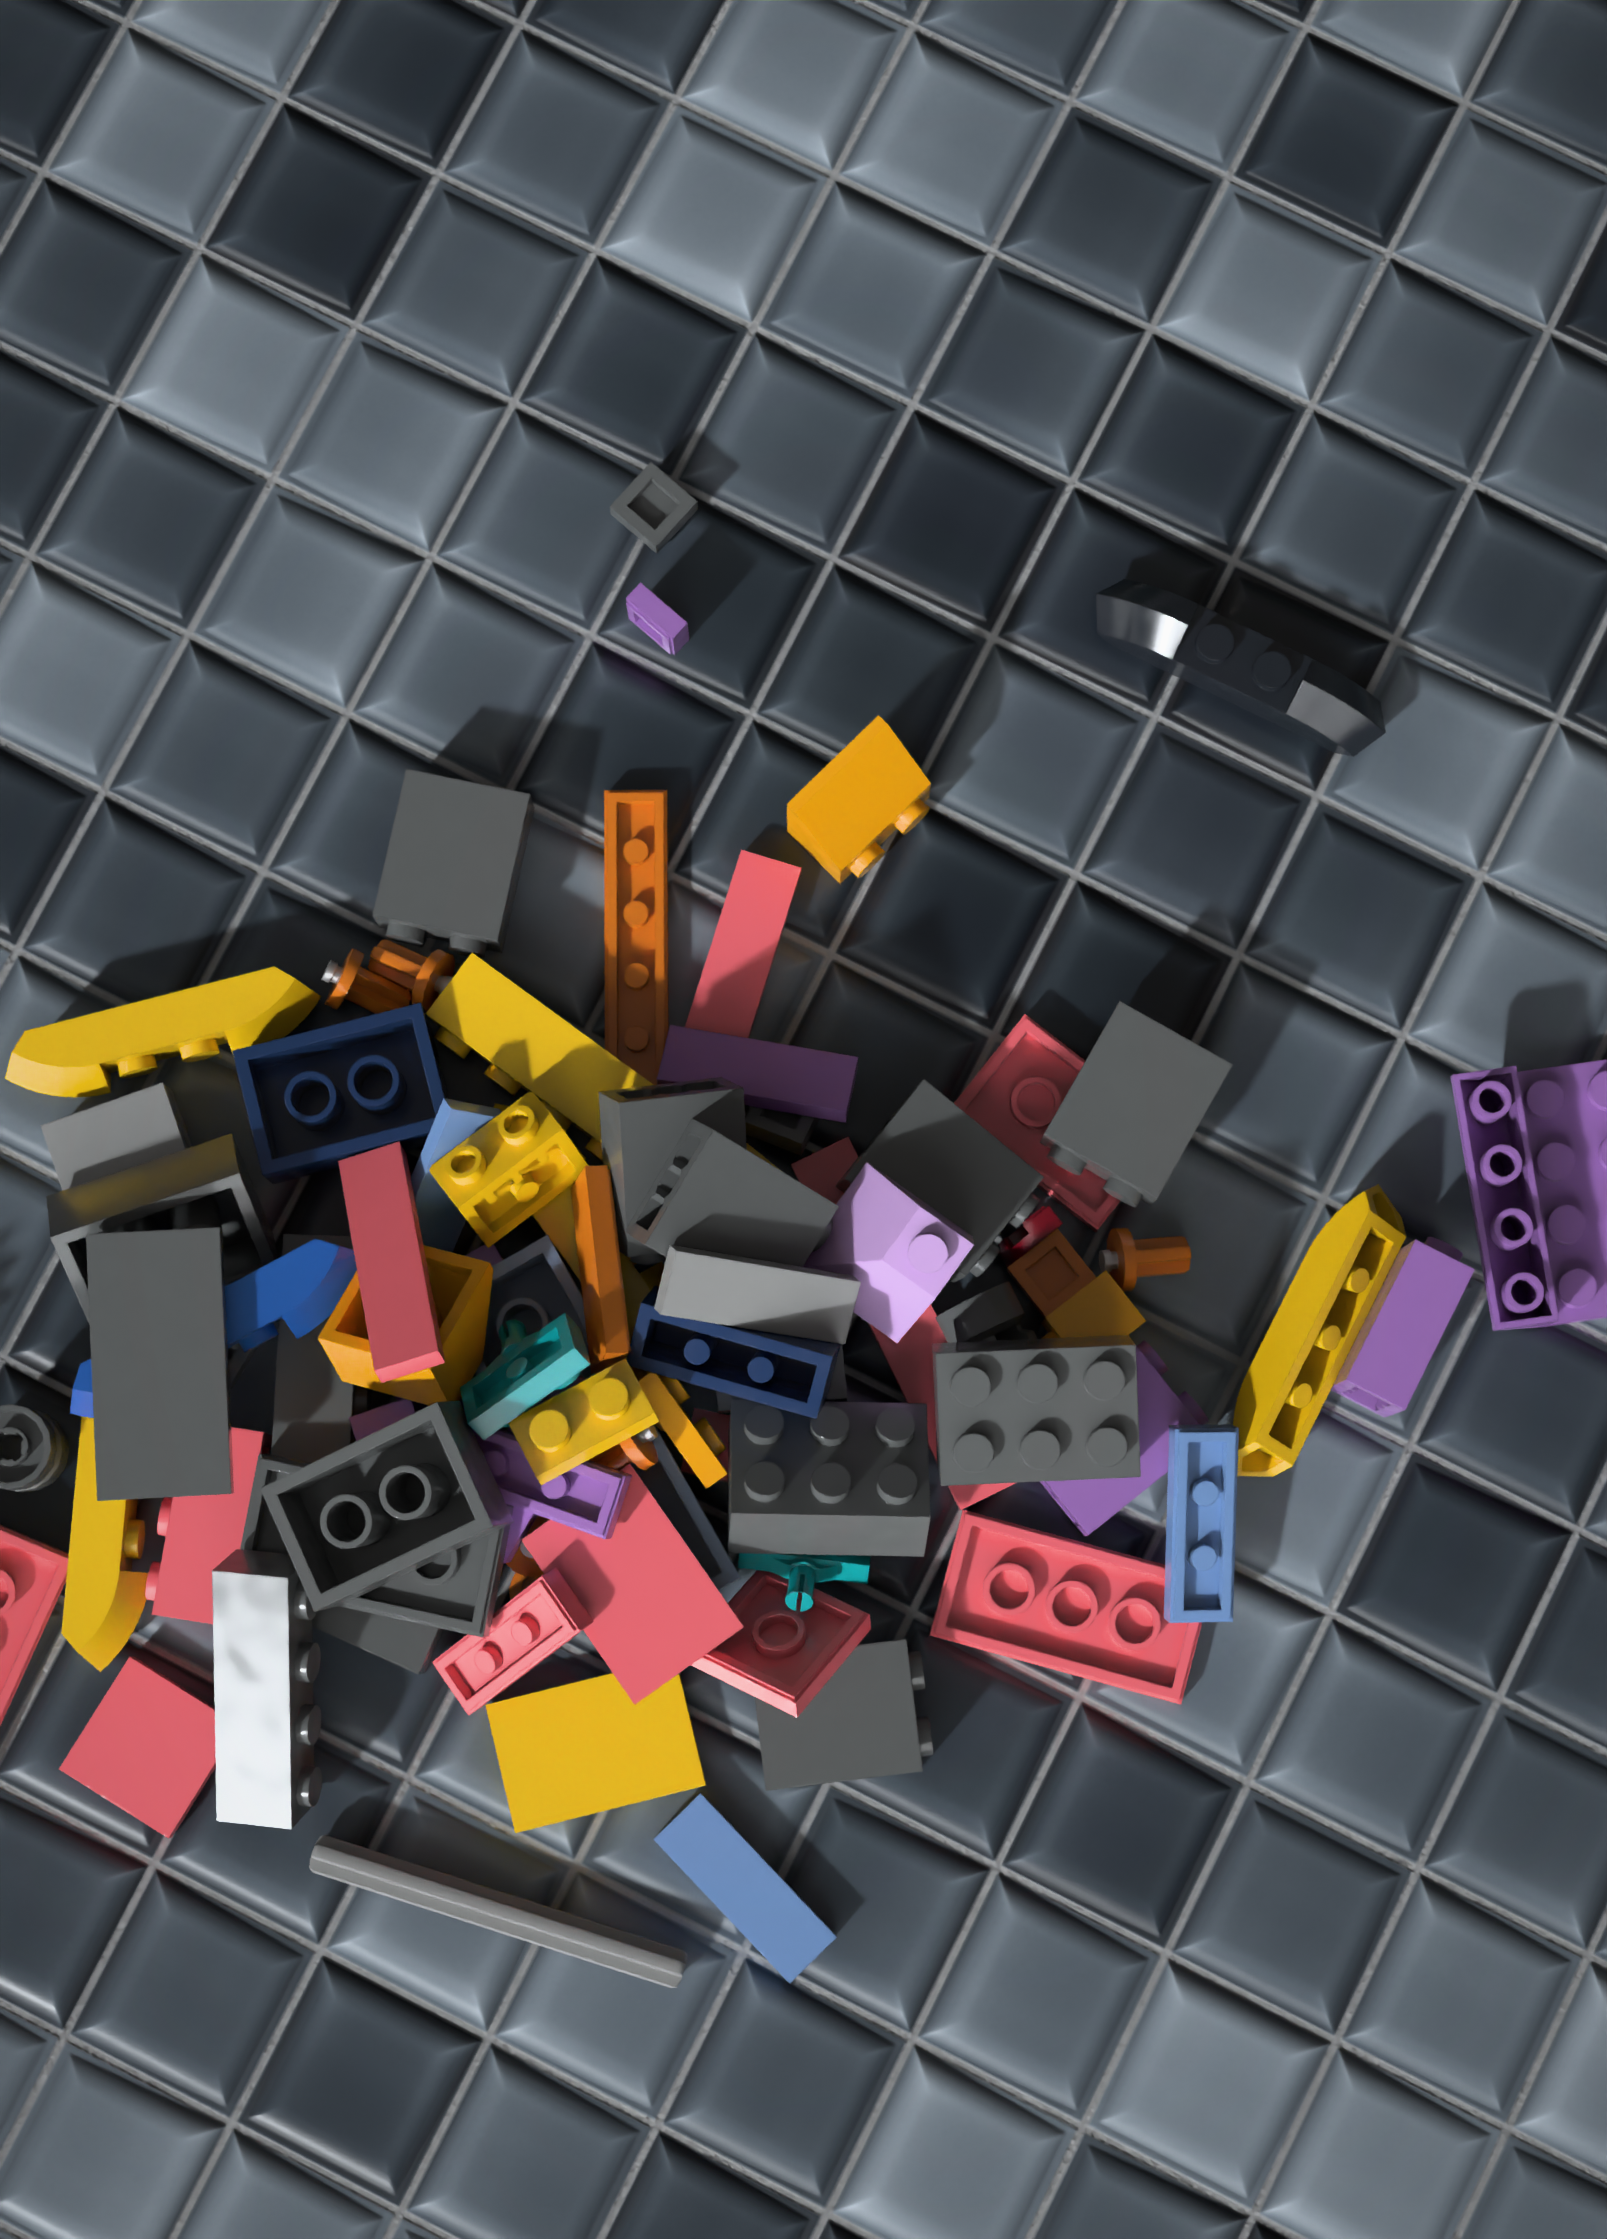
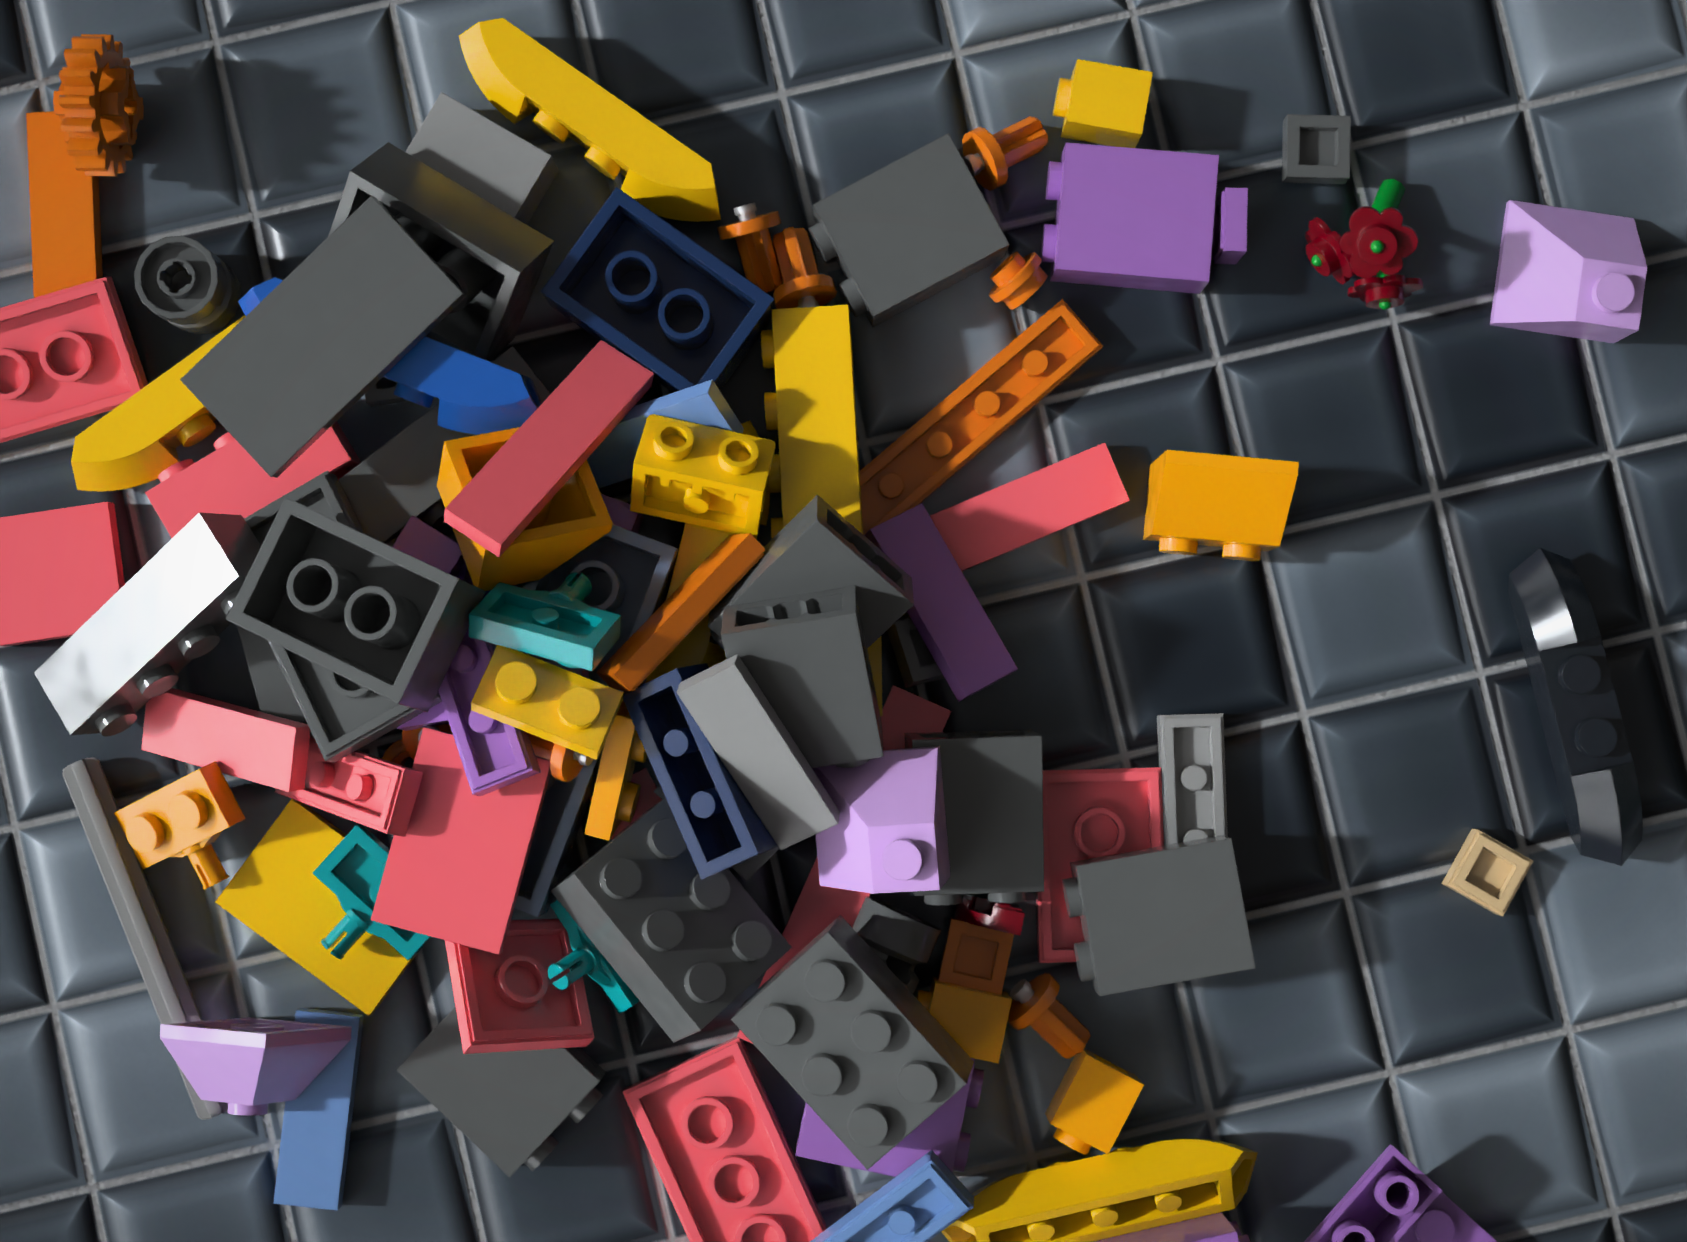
camera: 50 degrees right, 5 degrees up
(397, 1710) = (237, 738): none -> coral tile
(432, 1802) = (183, 822): none -> light orange plate
(449, 750) = (992, 155): none -> orange piece
(483, 636) = (1103, 104): none -> yellow brick
(560, 811) = (1017, 279): none -> orange plate
(587, 688) = (1131, 218): none -> medium lavender brick
(592, 1695) = (355, 876): none -> teal plate
(665, 1896) = (252, 1058): none -> lavender slope
(763, 530) = (1370, 248): none -> dark red plant
(907, 401) = (1569, 273): none -> lavender slope
(1051, 995) = (1192, 776): none -> light grey tile
(1237, 1277) = (1092, 1103): none -> light orange brick
(1309, 836) = (1487, 872): none -> tan tile

